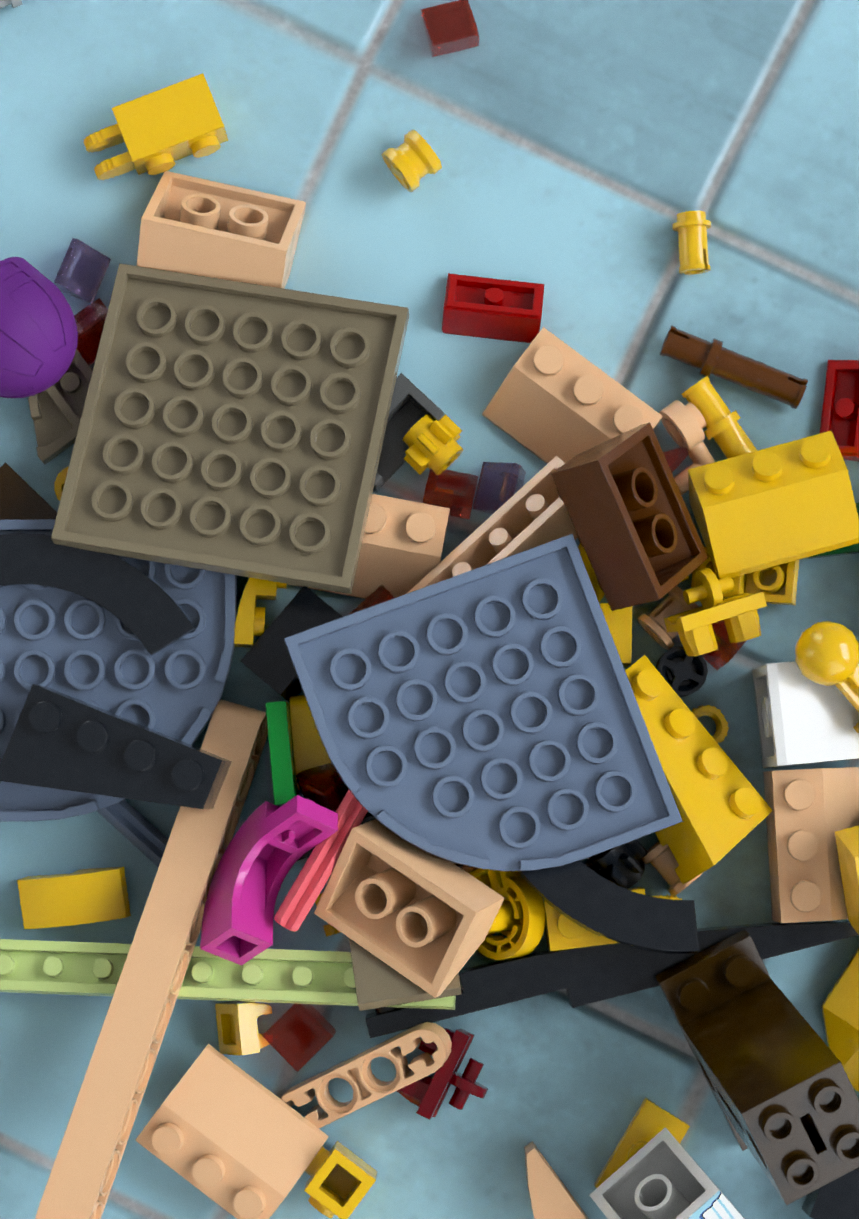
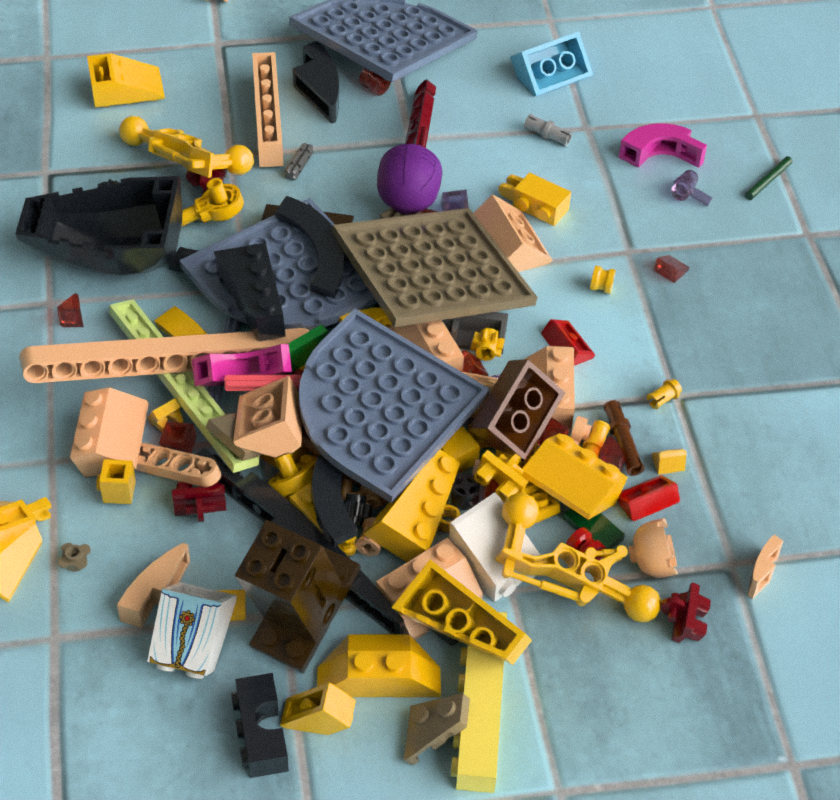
camera: 55 degrees right, 35 degrees down
(758, 414) = (611, 453): none -> clear red slope
(809, 328) = (669, 460): none -> yellow slope

